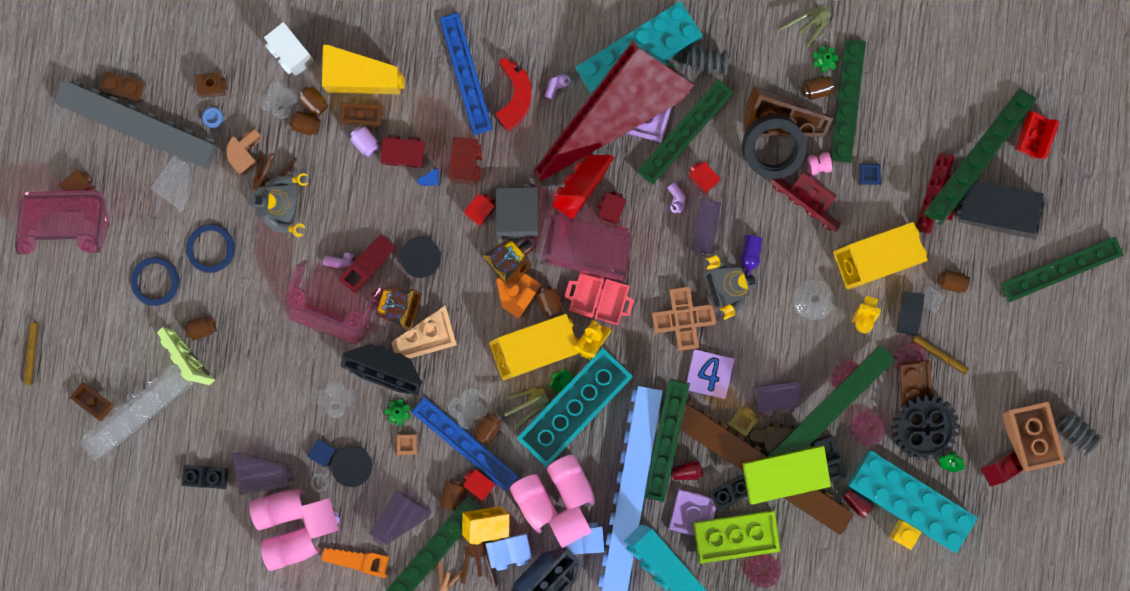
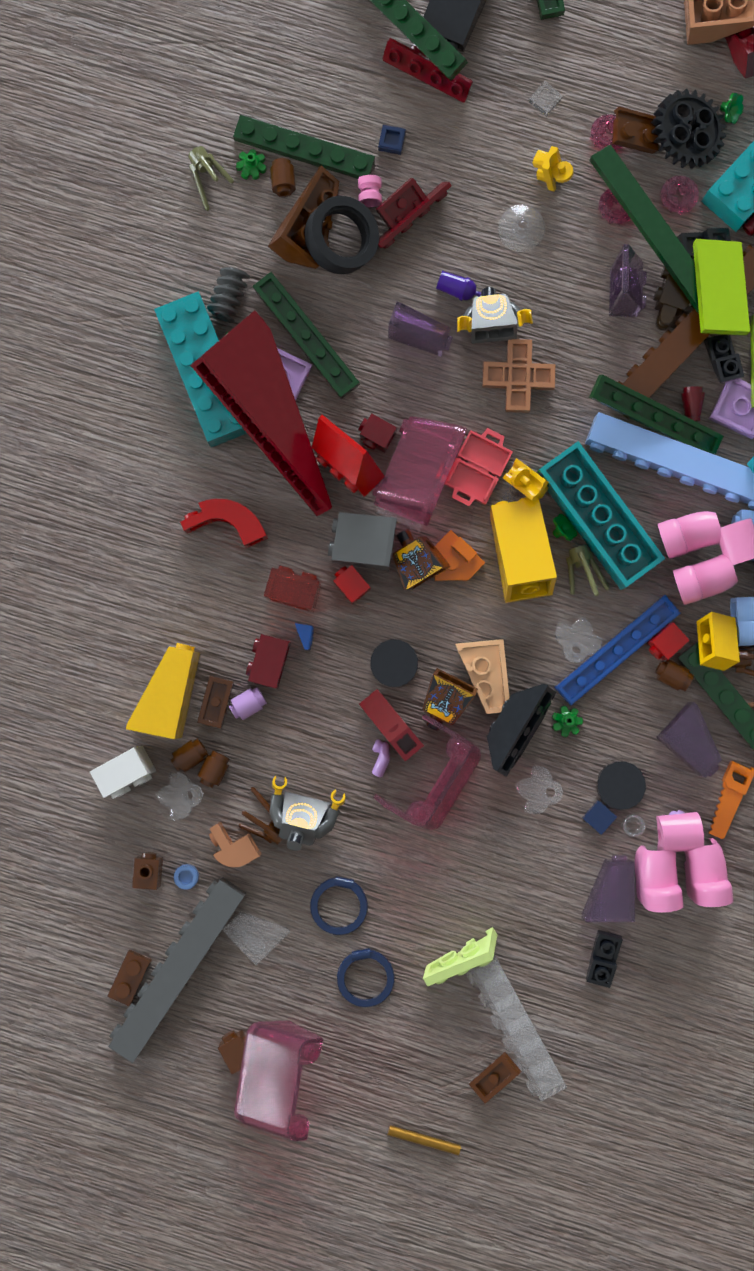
camera: 80 degrees left, 0 degrees up
(200, 327) = (430, 933): reddish brown brick -> none
(406, 444) = (606, 717): nougat tile -> none
(466, 73) = (190, 573): blue tile -> none
(487, 428) = (605, 620): reddish brown brick -> none
(550, 301) = (472, 523): reddish brown brick -> none
(556, 83) = (221, 471): lavender arm -> none
(678, 198) = (379, 357): lavender arm -> none
(703, 177) = (361, 323): red brick -> none
(710, 374) = (585, 358): lavender tile -> none
(742, 420) = (648, 329): clear yellow brick -> none
(880, 255) = (488, 143): yellow slope -> none
(911, 313) = (557, 121): black slope -> none
(940, 354) = (609, 99): pearl gold bar -> none
(953, 281) = (530, 68): reddish brown brick -> none

